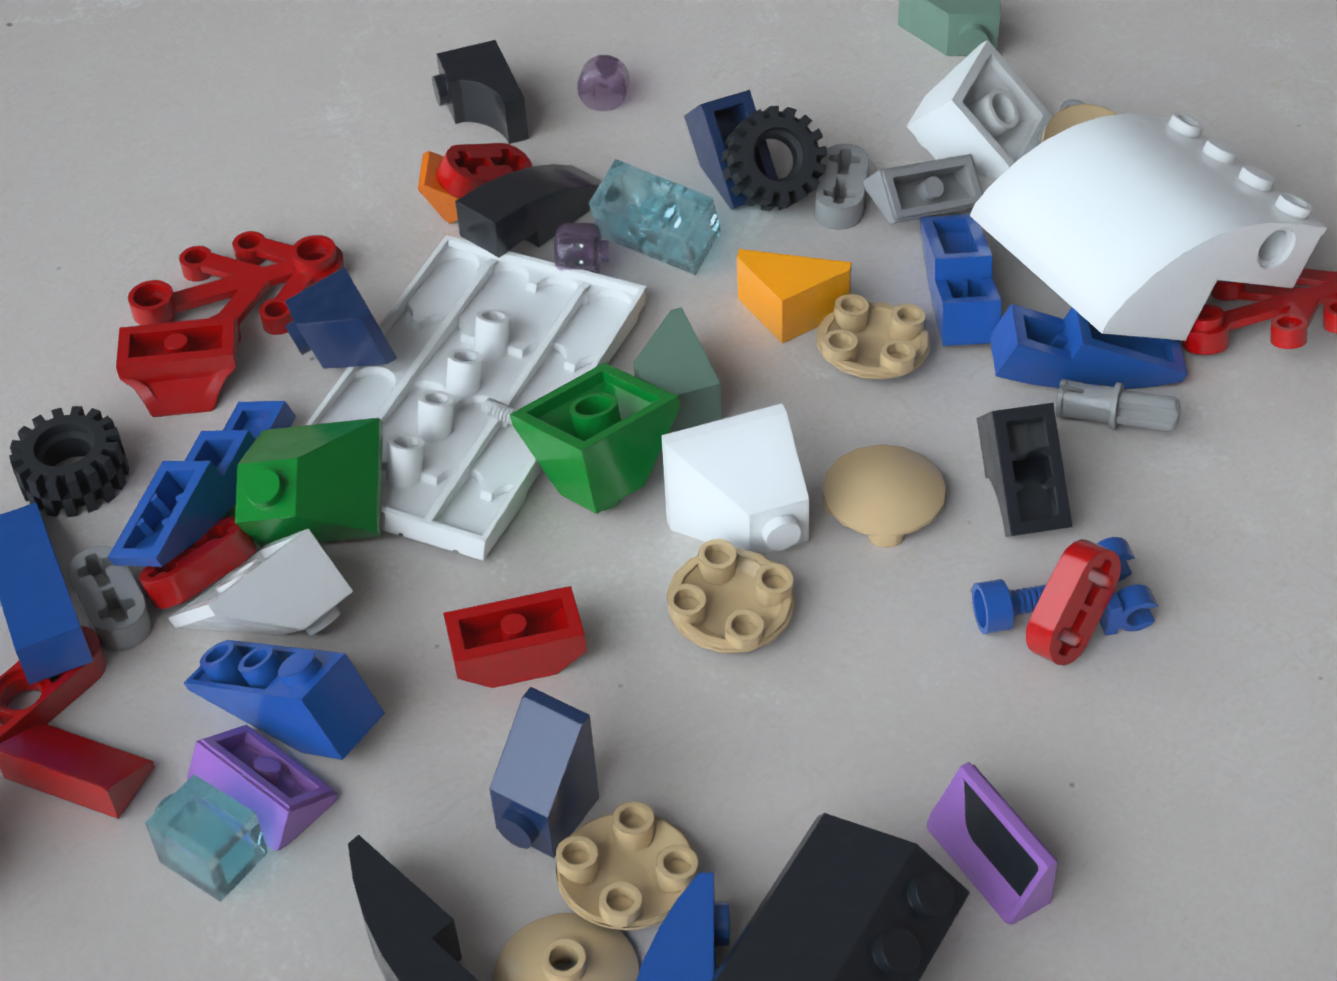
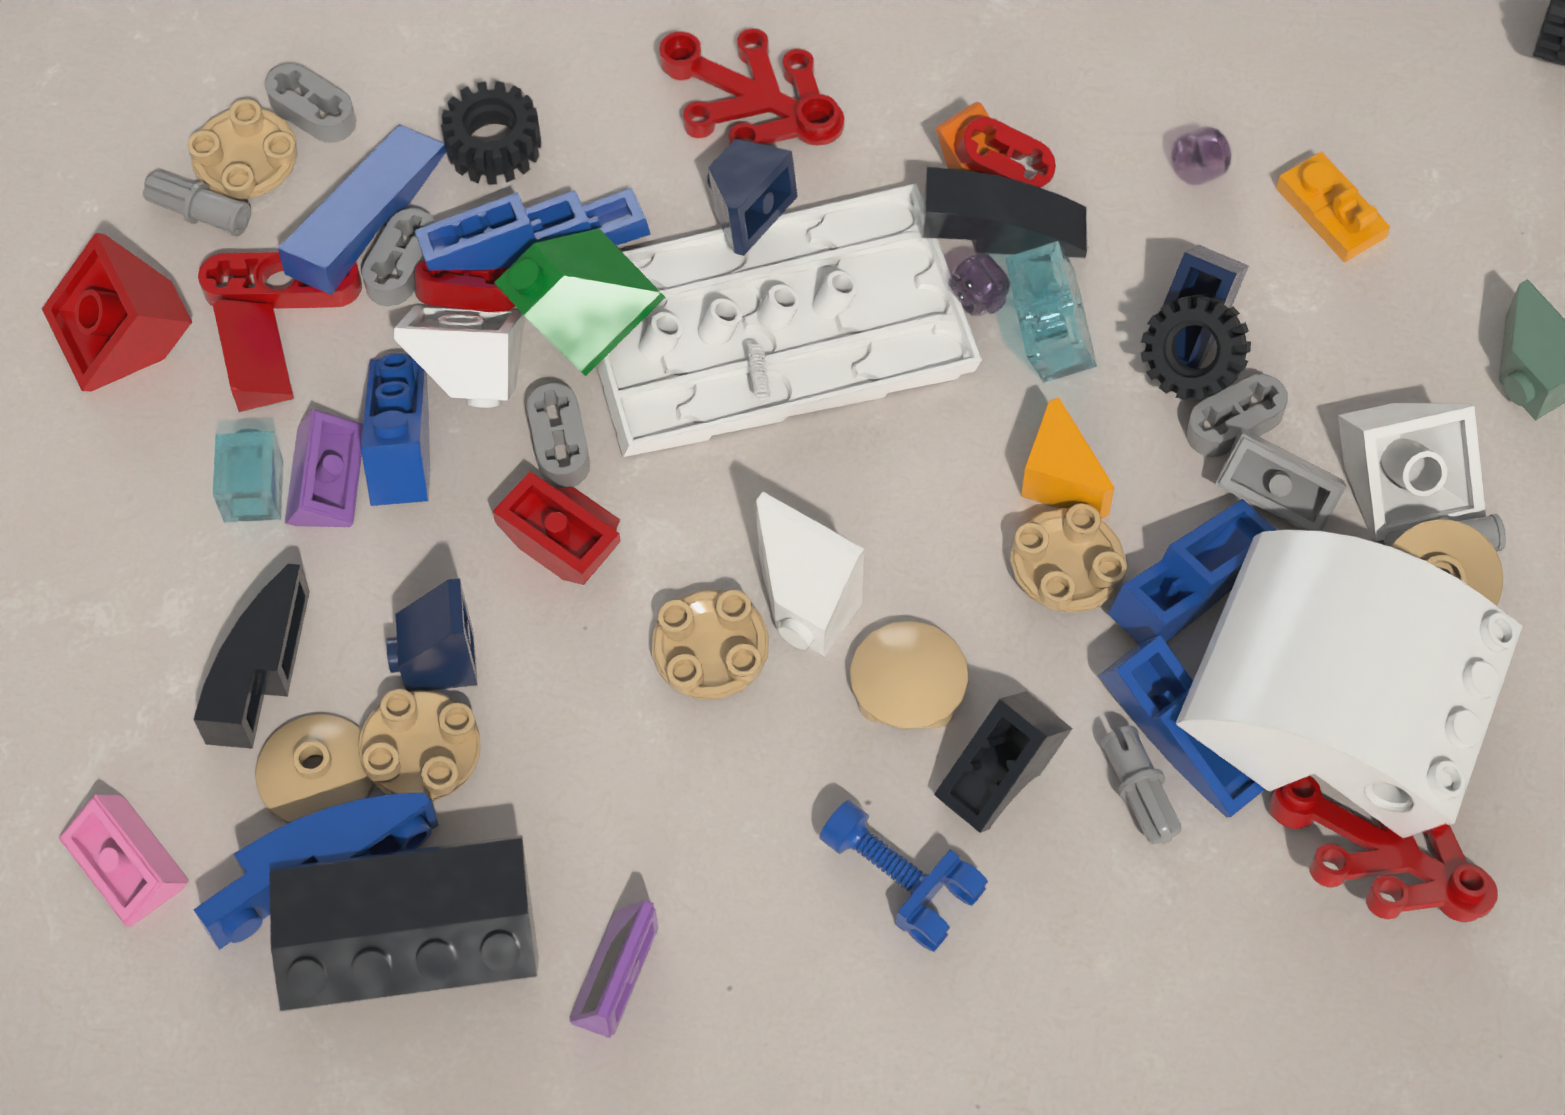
camera: 50 degrees right, 15 degrees up
(179, 363) = (635, 119): red slope -> none
(418, 584) = (547, 437): none -> light grey beam
(481, 89) = (1108, 76): black arch -> none
(598, 434) = (781, 439): green slope -> none
(680, 366) = (892, 452): sand green slope -> none
(720, 49) = (1332, 206): none -> light orange plate
(1073, 602) = (876, 880): red beam -> none

